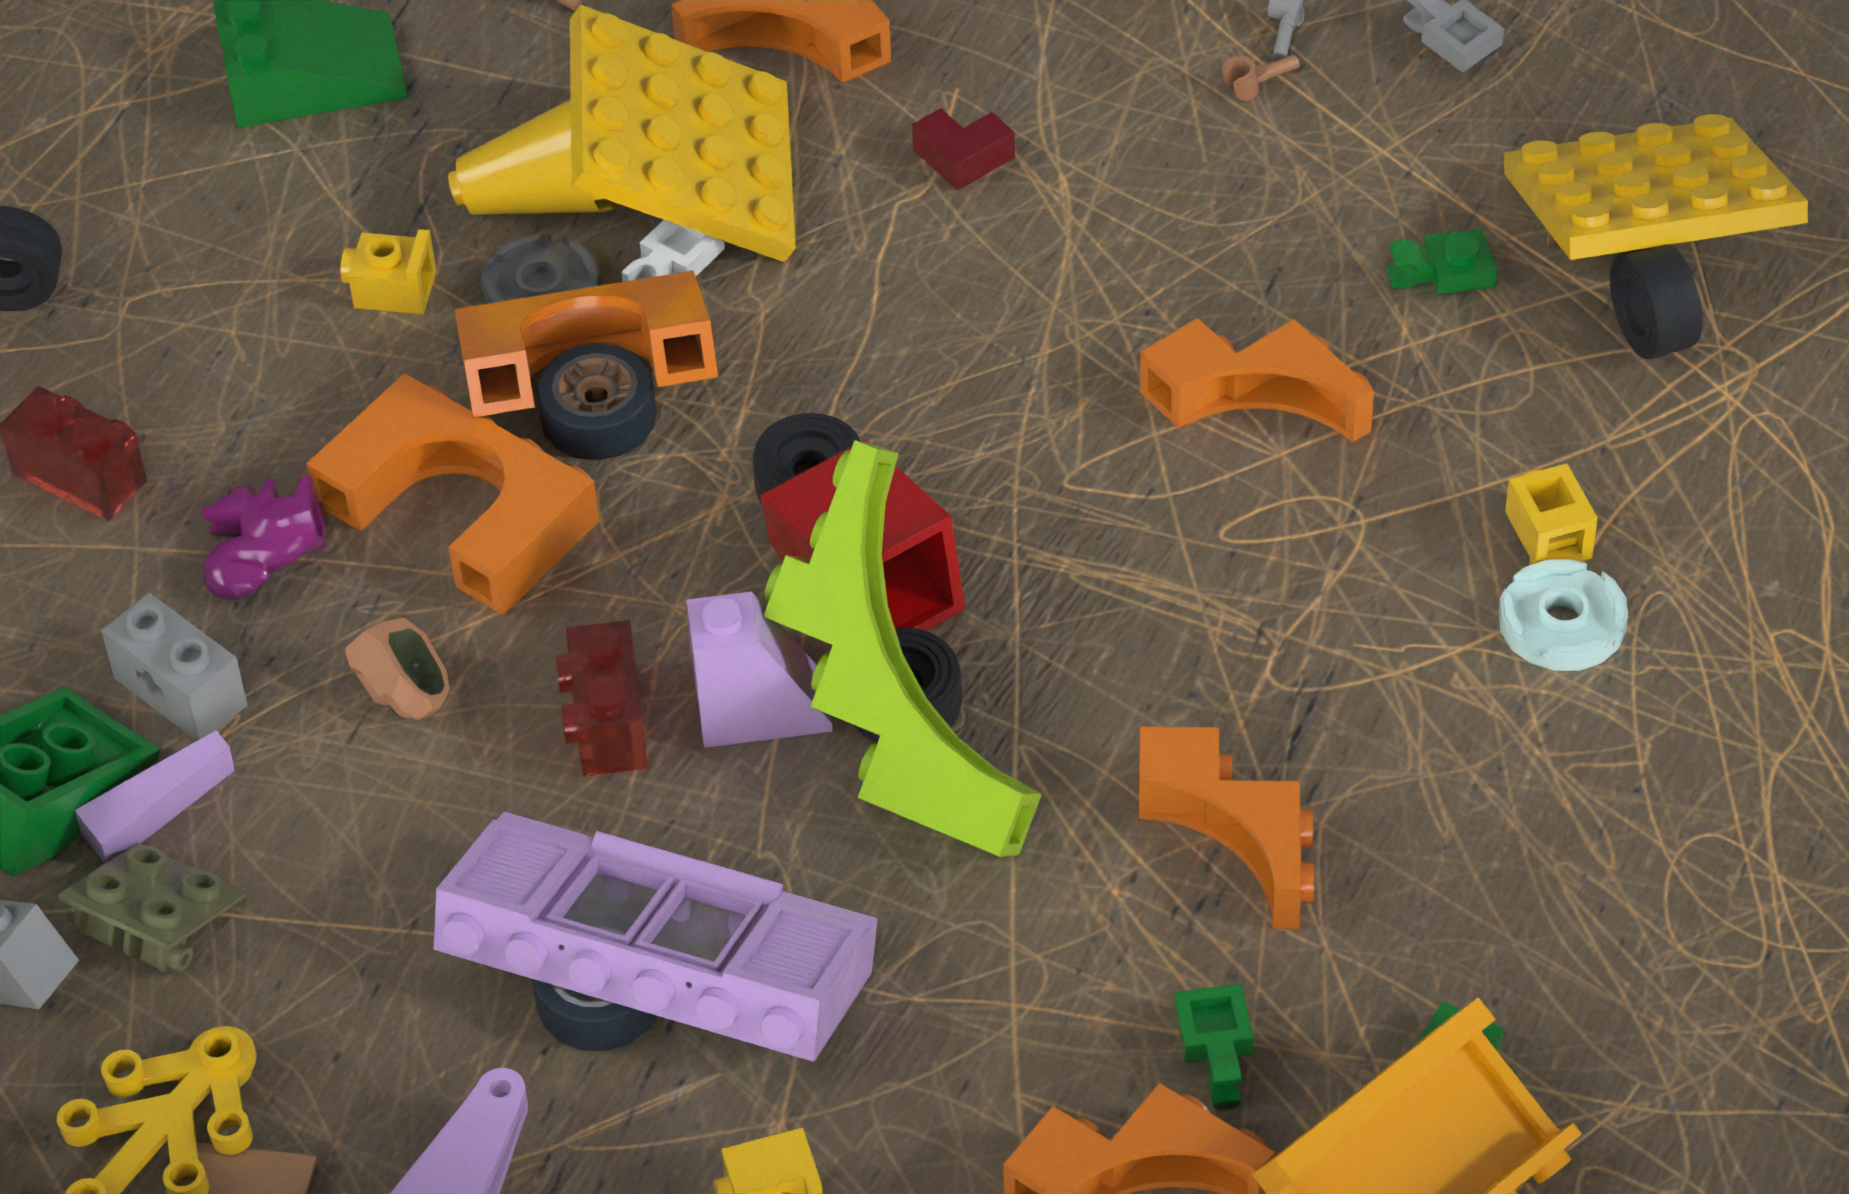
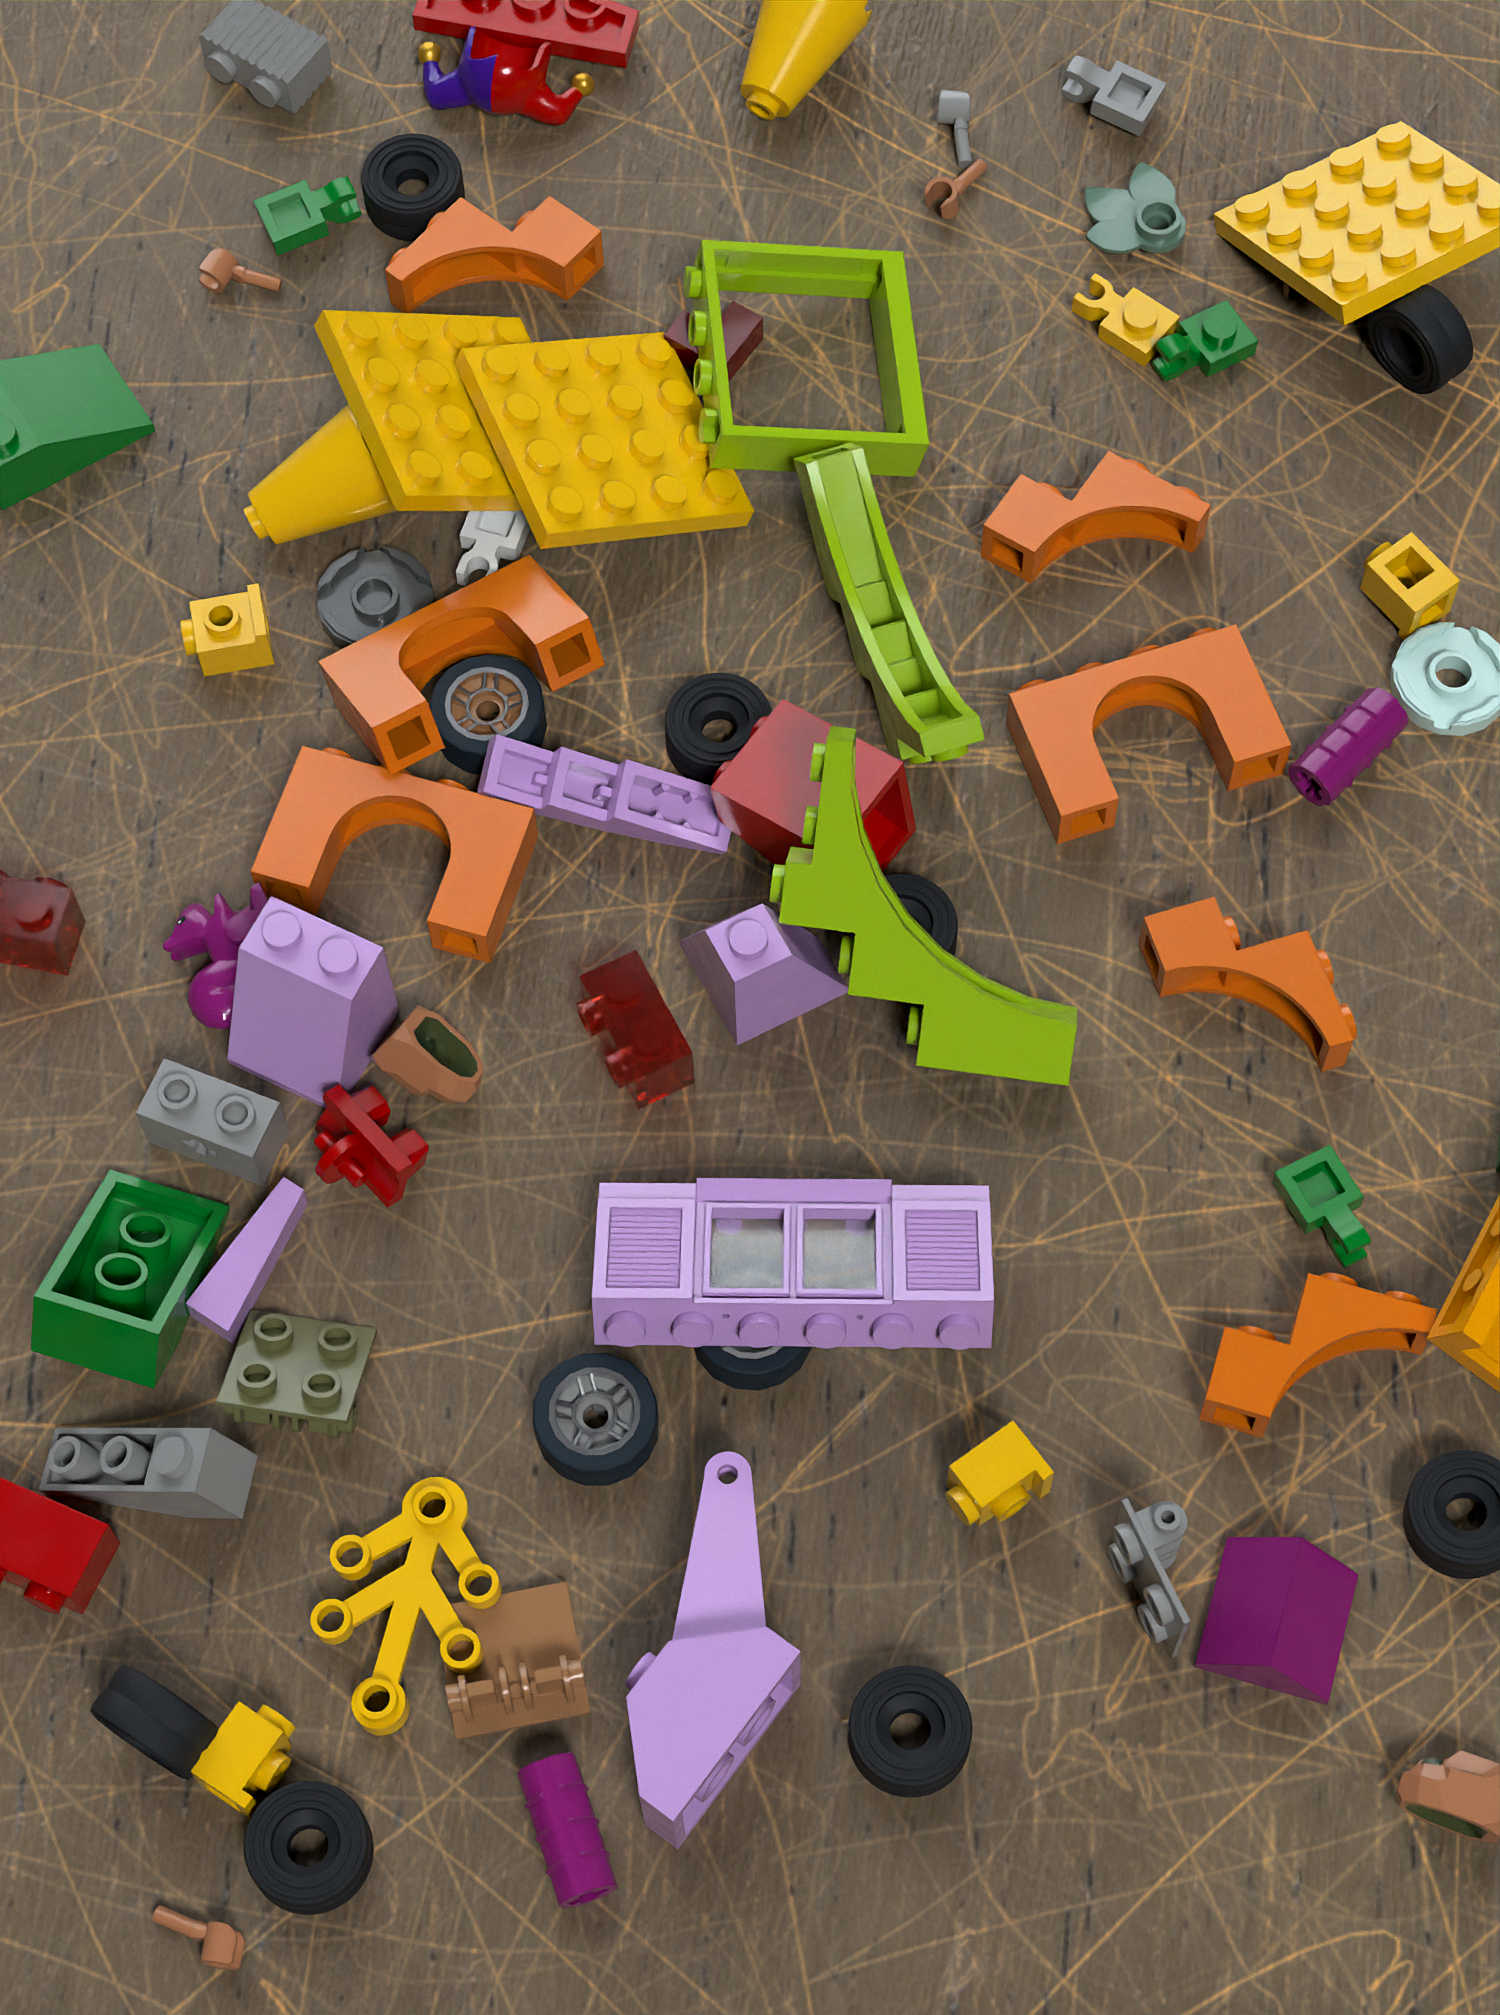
camera: 20 degrees left, 15 degrees up
(298, 728) = (360, 1150): none -> red hips
(303, 584) = (308, 1003): none -> lavender slope
(403, 992) = (607, 1388): none -> wheel
(670, 493) = (604, 795): none -> lavender slope
(809, 192) = (601, 439): none -> yellow plate
(1002, 392) = (914, 697): none -> lime arch
(1059, 98) = (812, 272): none -> lime window
(1294, 540) = (1201, 678): none -> orange arch
(1374, 224) = (1127, 323): none -> yellow plate
(1425, 642) = (1348, 746): none -> magenta axle
(1431, 142) = (1127, 216): none -> sand green plate

